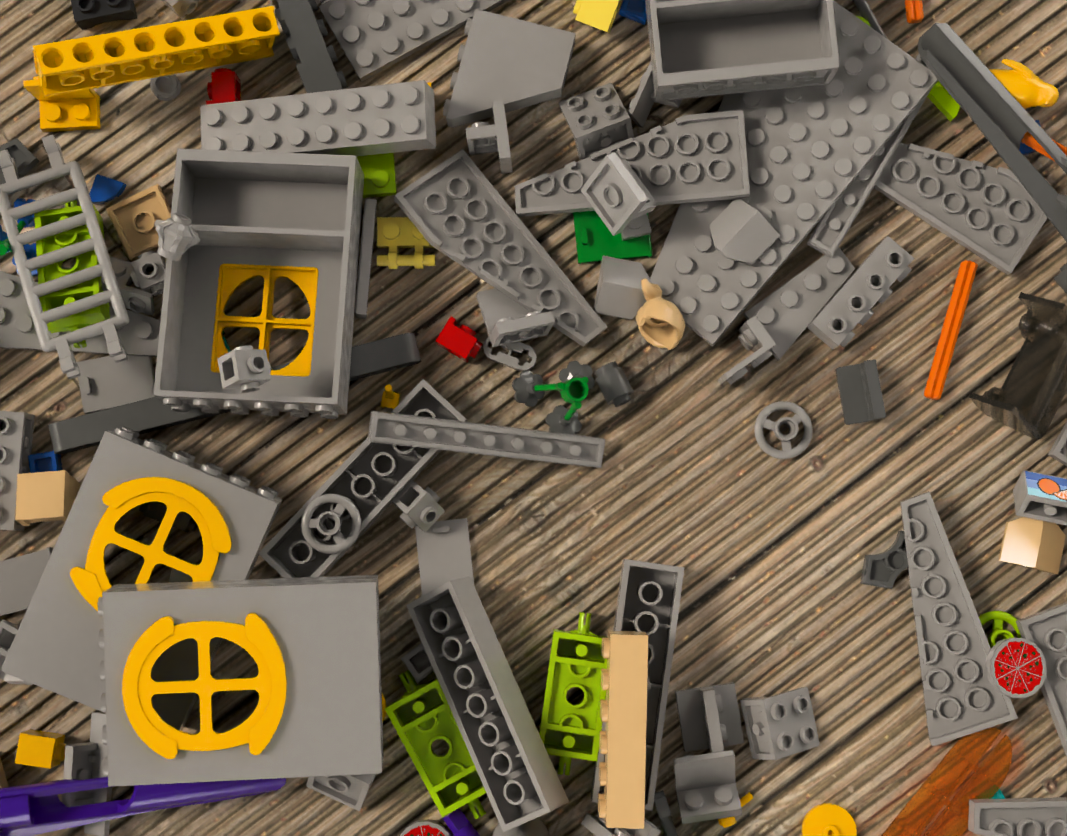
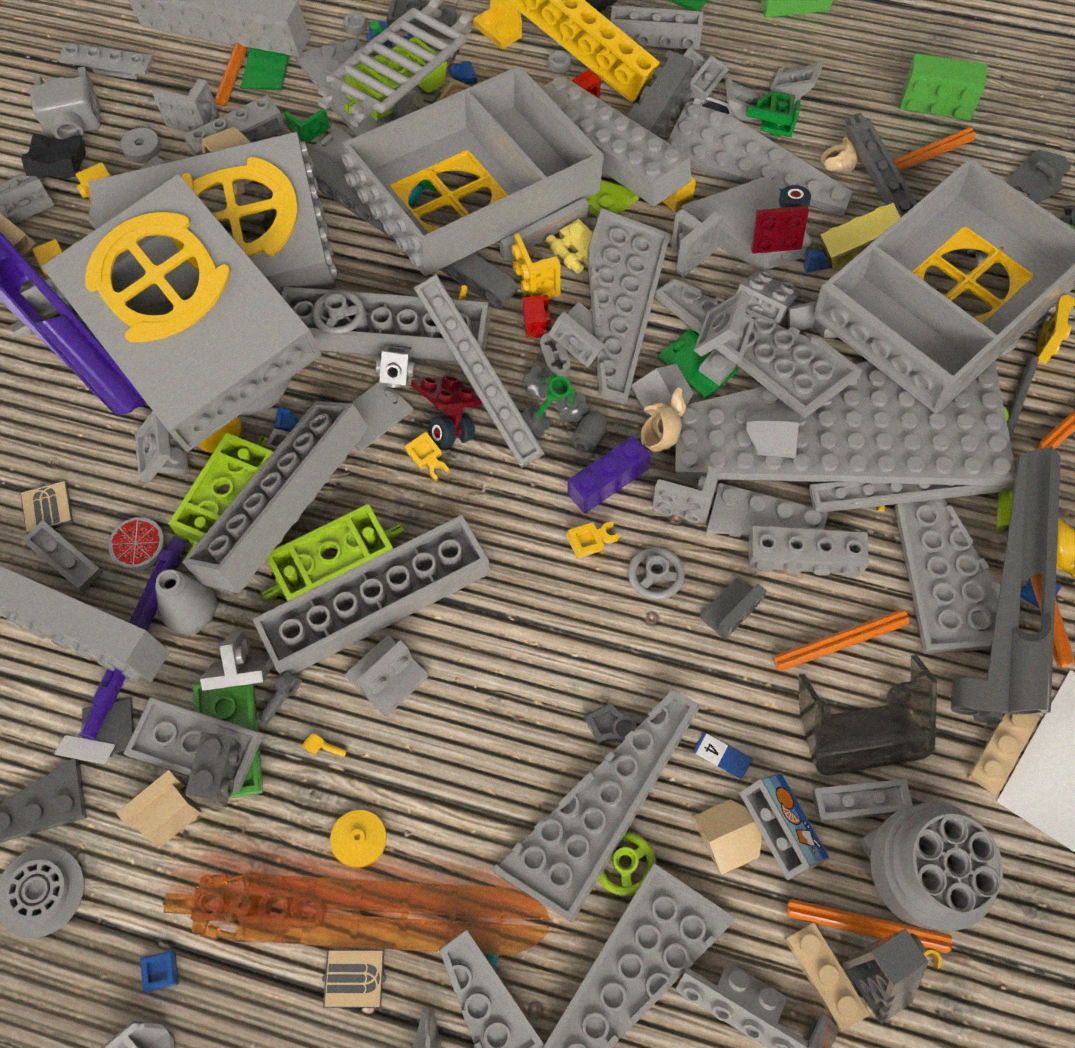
camera: 50 degrees right, 20 degrees down
(63, 391) = (311, 127): none -> green bracket
(175, 236) = (458, 87): light grey rock -> none
(244, 369) = (400, 168): light grey brick -> none
(397, 639) = (285, 420): none -> blue tile
(430, 308) = (538, 277): none -> yellow bracket
(492, 483) = (450, 397): none -> dark red plate
(526, 541) = (425, 453): none -> yellow plate
(559, 45) = (784, 226): none -> dark red plate
(592, 43) = (816, 261): none -> blue tile
(625, 729) = (325, 588): tan brick -> none
(669, 400) = (608, 474): none -> dark purple brick
(706, 787) = (328, 704): light grey bracket -> none
(713, 463) = (589, 540): none -> yellow plate
(780, 724) = (422, 732): light grey bracket -> none
(969, 499) = (722, 755): none -> sticker
(1016, 667) = (611, 884): tile -> none

